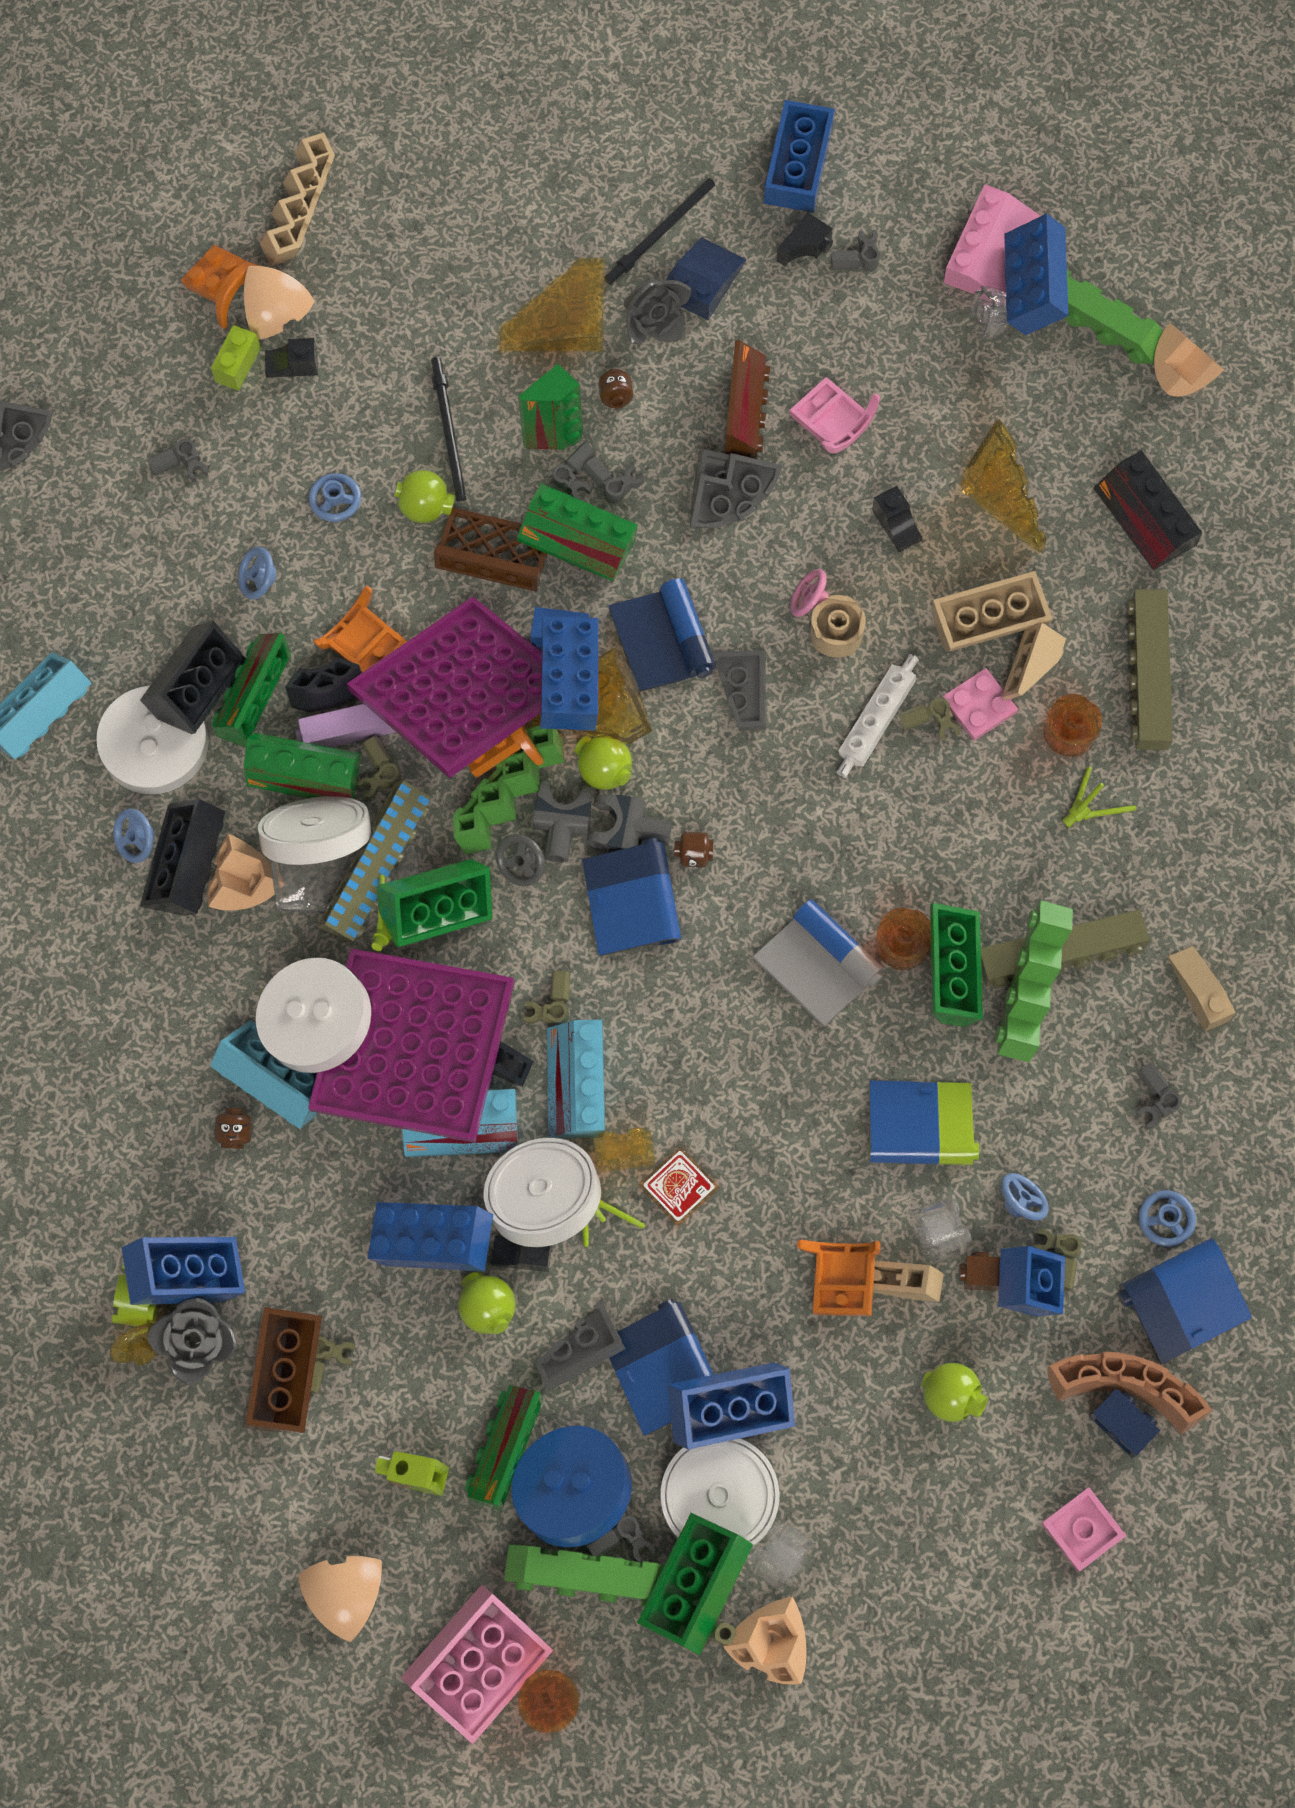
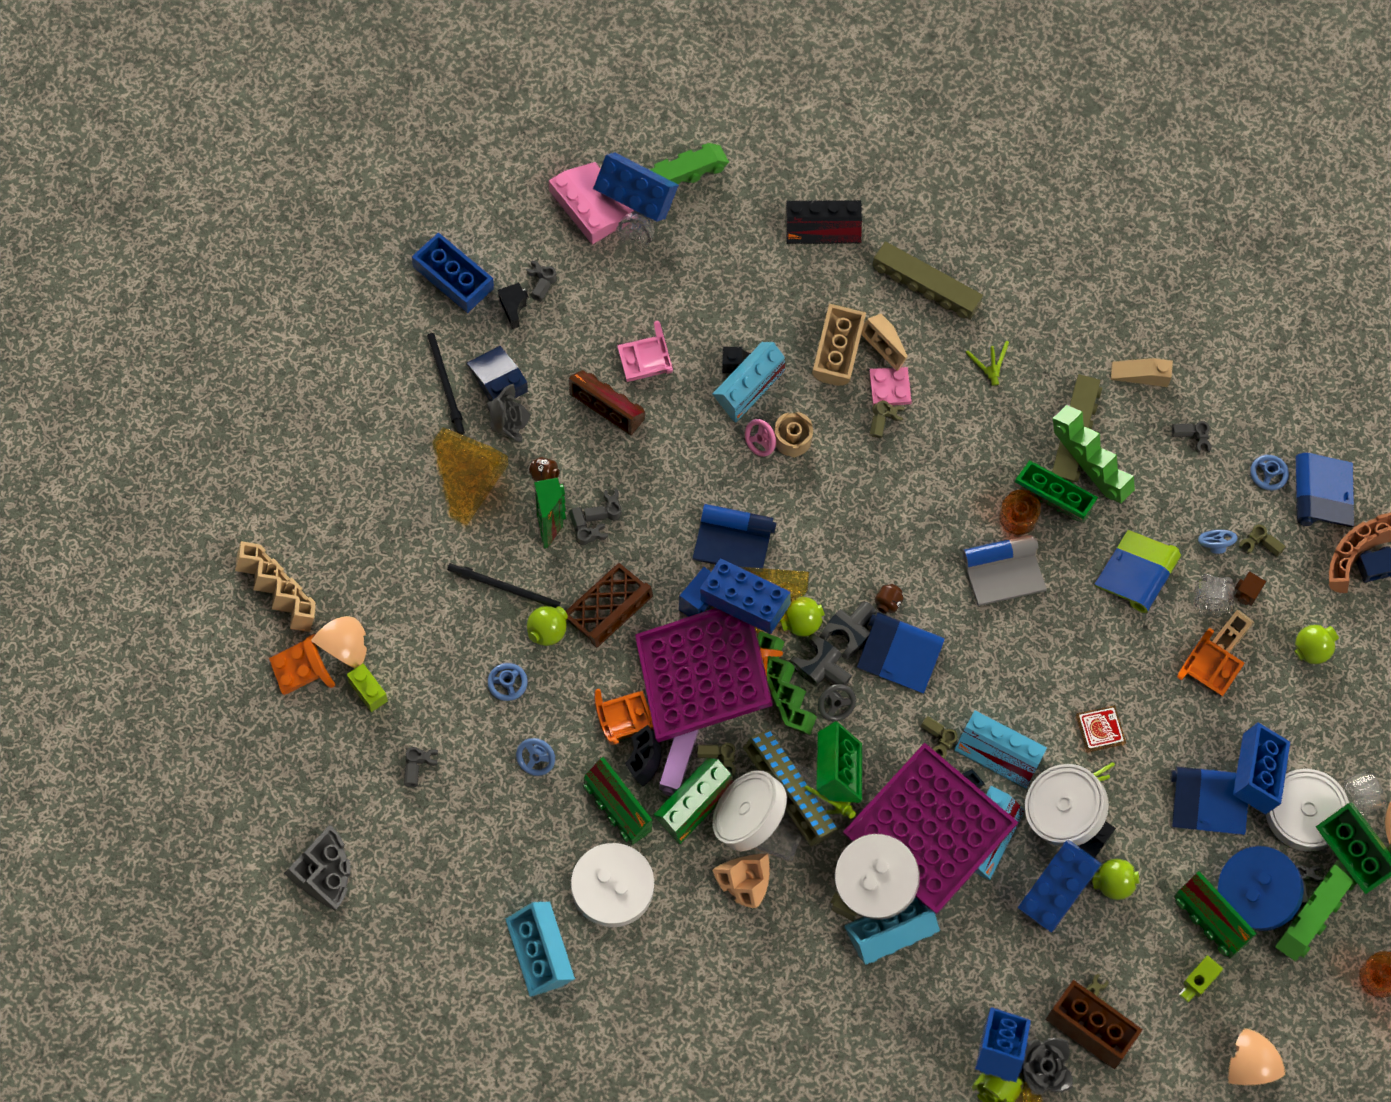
camera: 65 degrees left, 5 degrees down
(139, 833) = (673, 921): medium blue piece -> none
(183, 857) = (708, 909): black slope -> none
(194, 678) = (590, 833): black slope -> none
(233, 1128) = (915, 972): reddish brown head -> none
(294, 359) = (391, 653): black arch -> none
(476, 1664) = (1335, 1006): bright pink slope -> none
(577, 532) = (633, 547): green slope -> none
(582, 1349) = (1174, 839): dark grey wing -> none
(624, 1150) = (1064, 744): clear yellow brick -> none
(729, 487) = (656, 444): dark grey brick -> none
(745, 686) = (797, 510): dark grey wing -> none
(874, 542) = (750, 379): none -> medium azure slope
(877, 715) = (862, 447): white plate -> none
(1000, 487) = (764, 287): clear yellow slope -> none
(1031, 1281) = (1273, 563): blue brick -> none
(1085, 727) = (938, 343): clear orange brick -> none
(1182, 365) = (739, 147): light nougat brick -> none

